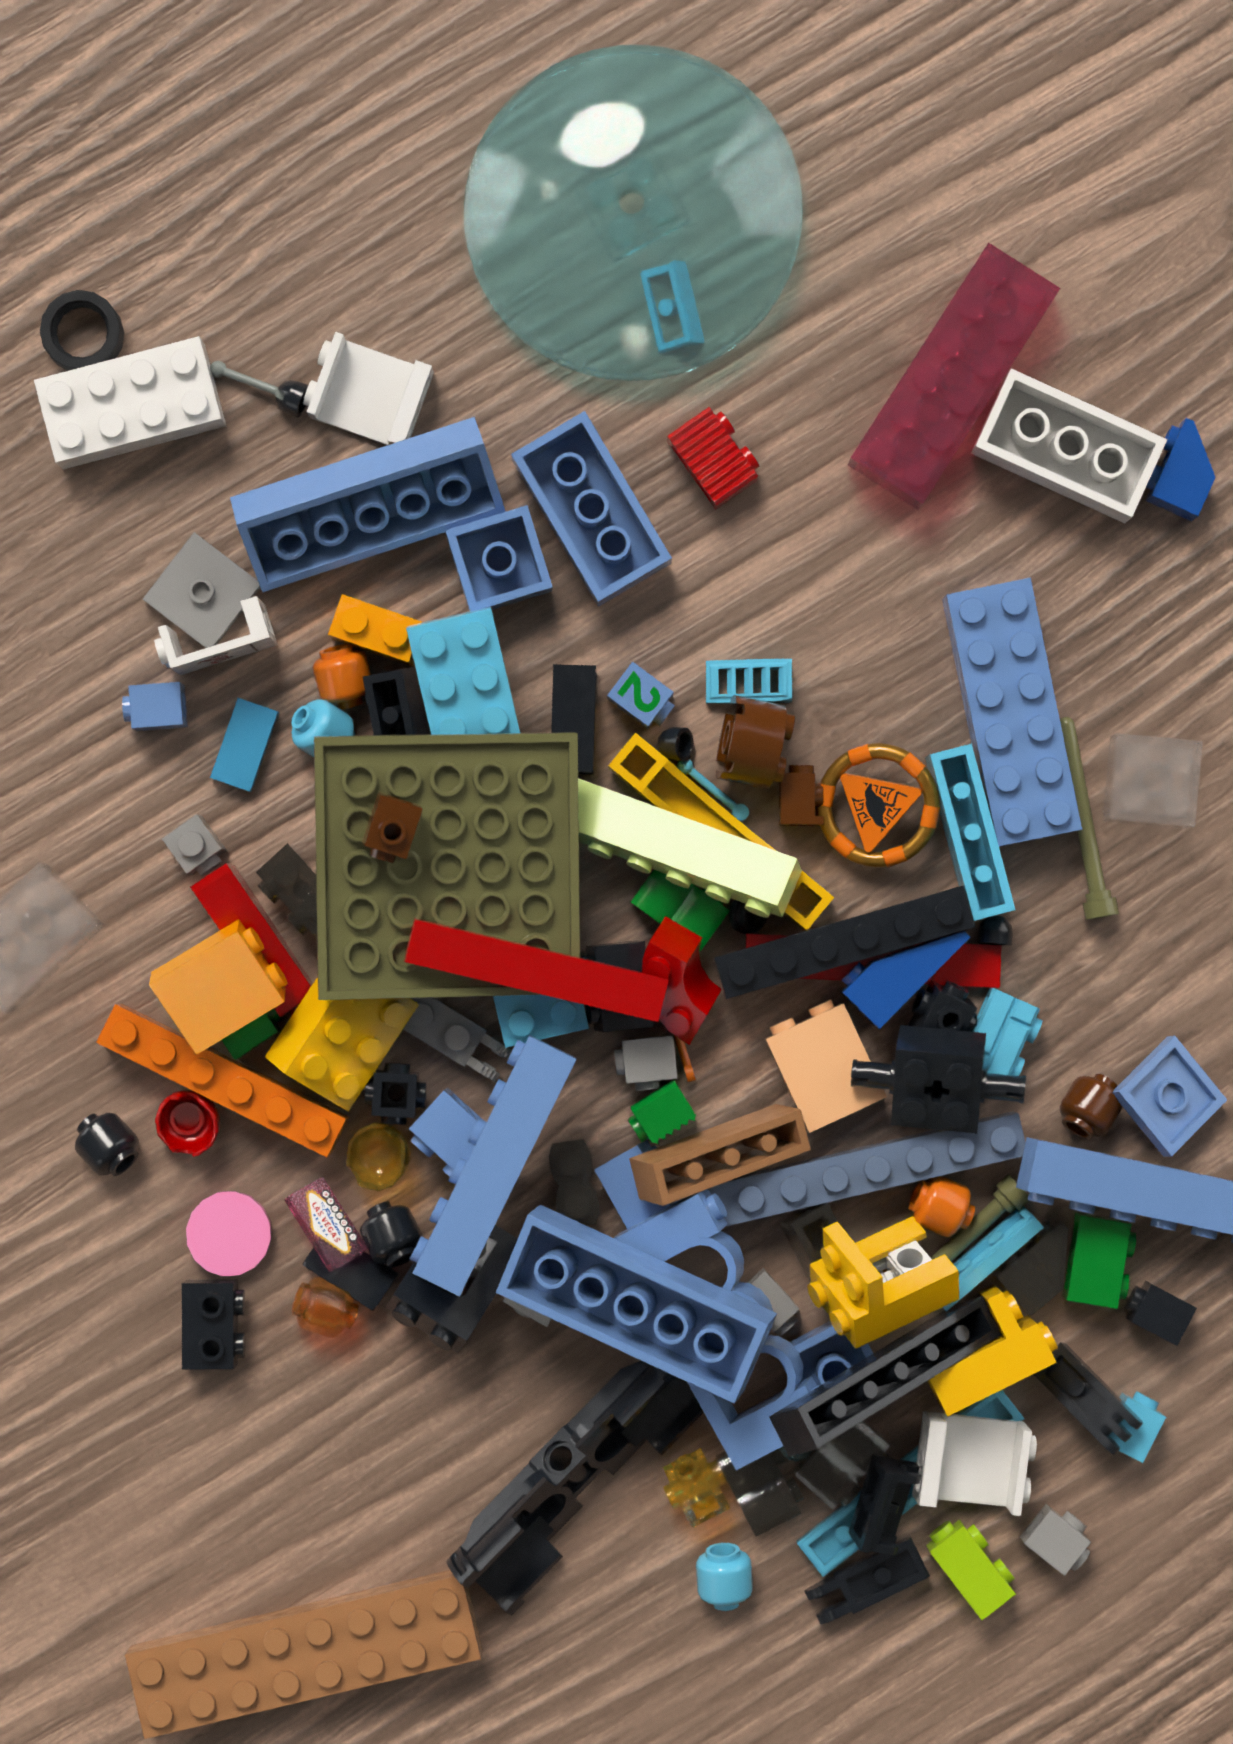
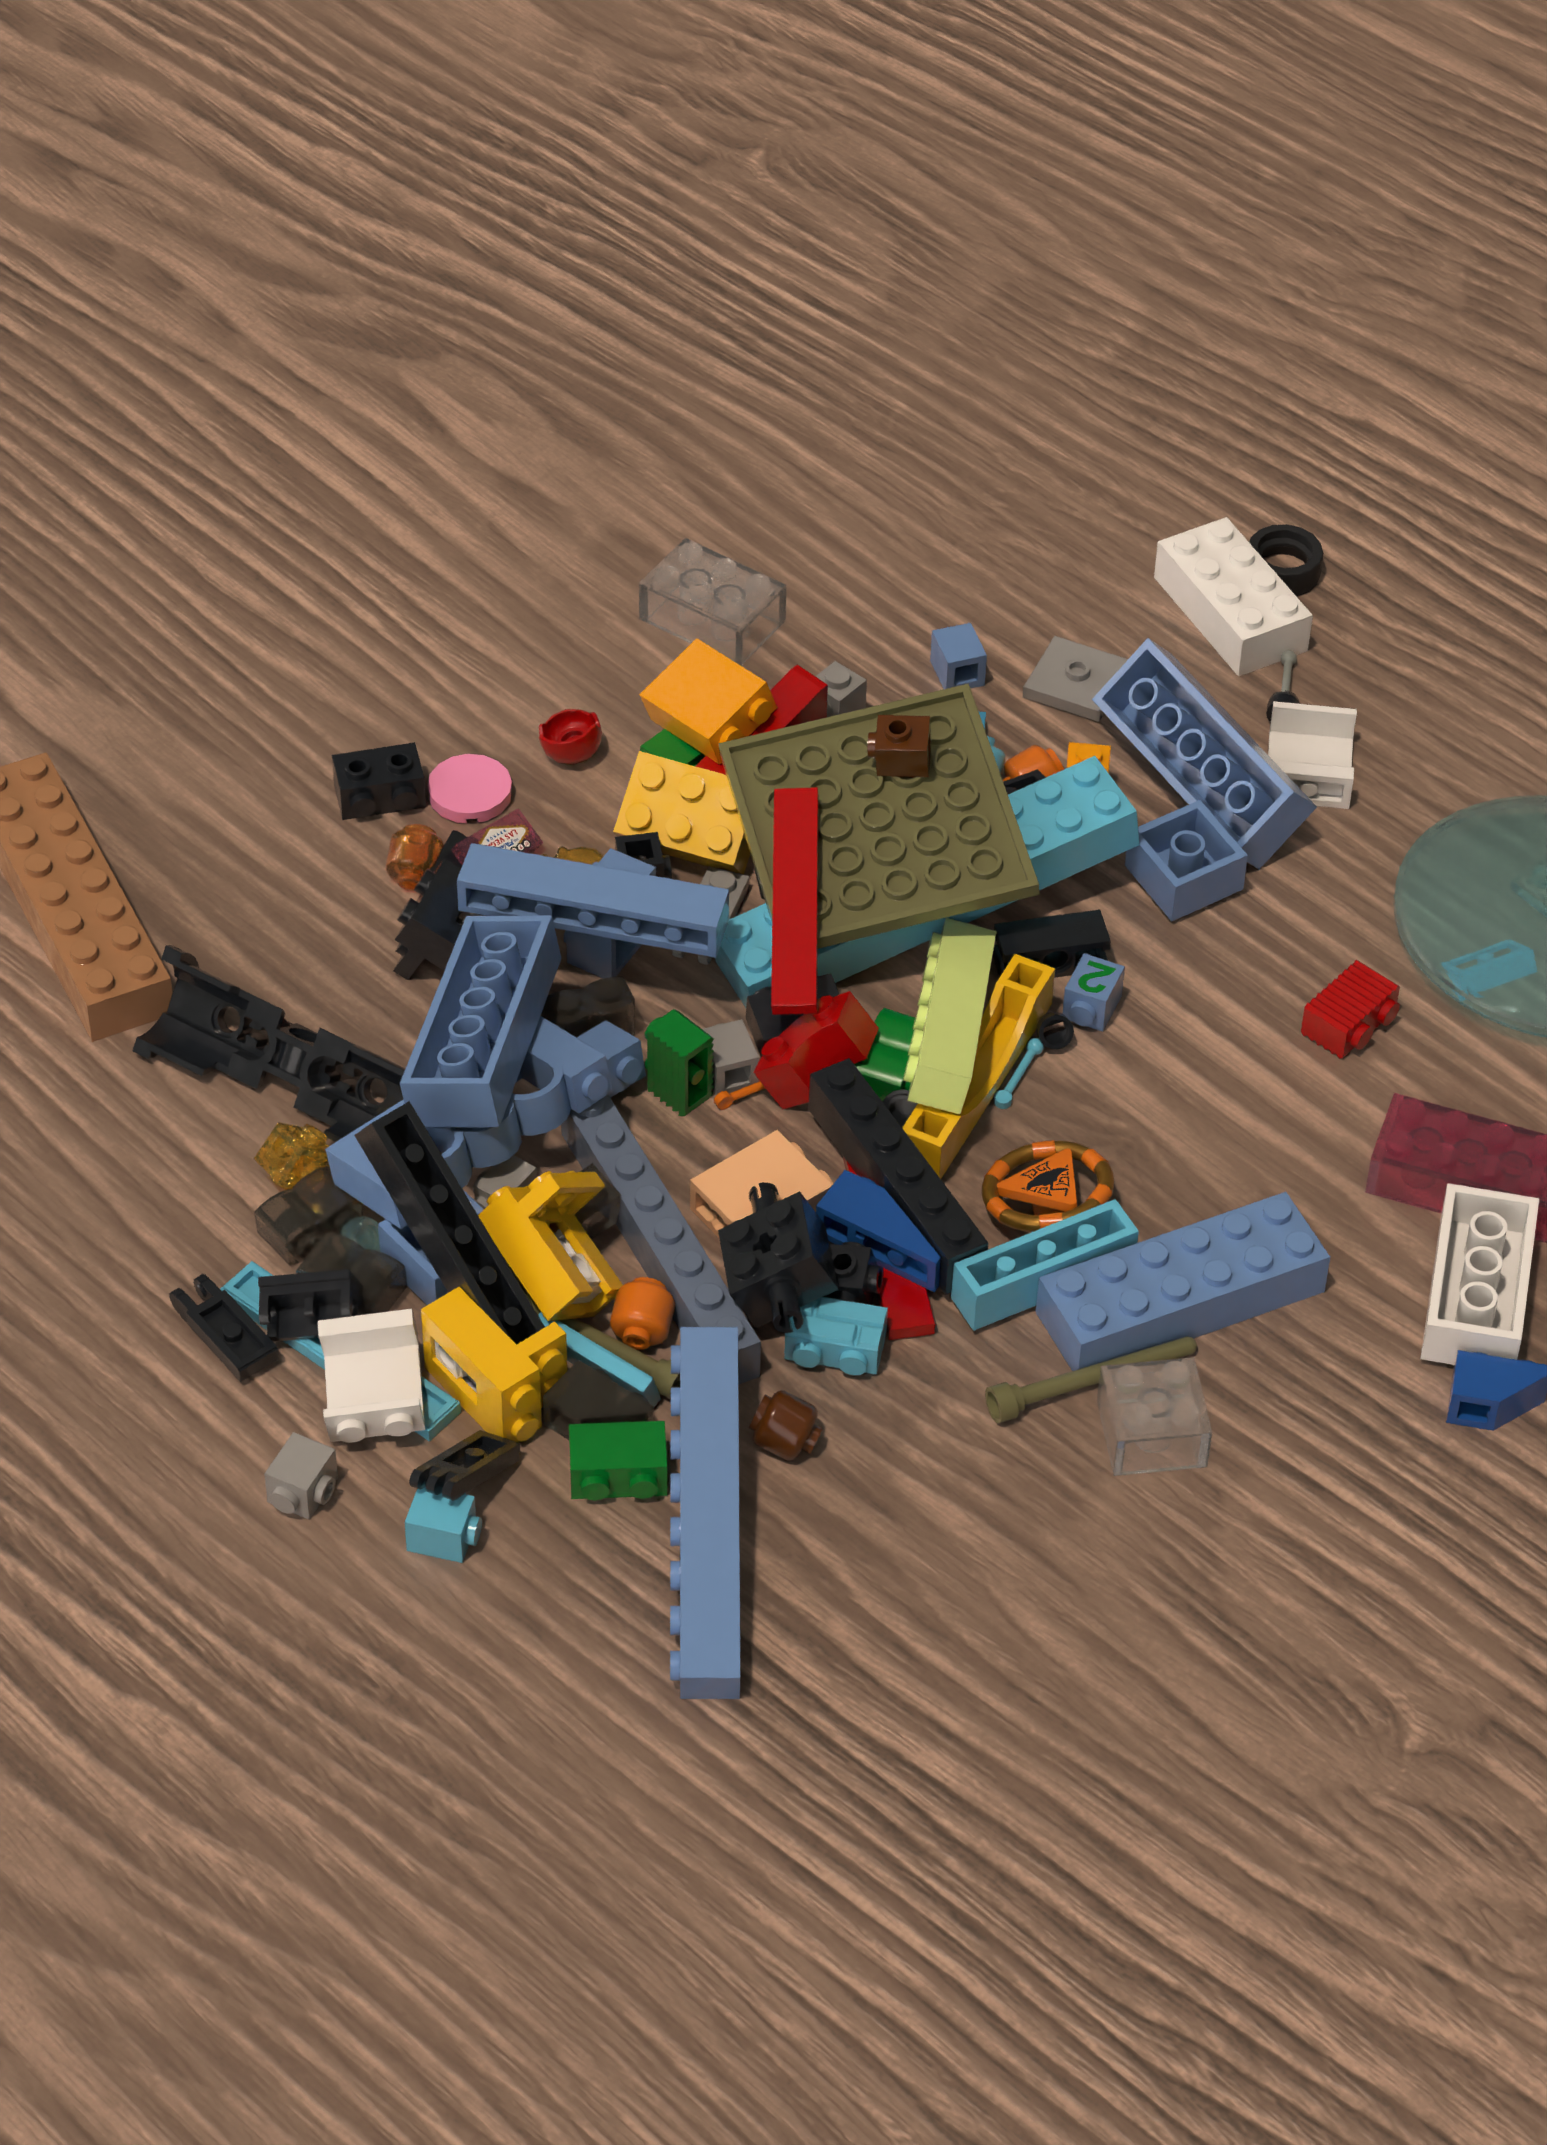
camera: 75 degrees right, 40 degrees down
(106, 1144) = (534, 684): black head -> none
(223, 1080) = (613, 754): orange brick -> none
(260, 638) = (1044, 696): white panel -> none
(591, 508) = (1262, 919): medium blue brick -> none
(719, 1154) = (649, 1098): medium nougat brick -> none
(724, 1576) = (206, 1201): medium azure head -> none
(754, 742) = (1077, 1073): reddish brown brick -> none
(784, 669) = (1141, 1104): medium azure slope -> none
(800, 797) = (1032, 1124): reddish brown brick -> none
(969, 1568) = (253, 1407): lime brick -> none
(995, 931) = (948, 1316): black hinge -> none
(1159, 1312) = (574, 1527): black brick -> none
(1169, 1096) = (816, 1487): medium blue plate -> none

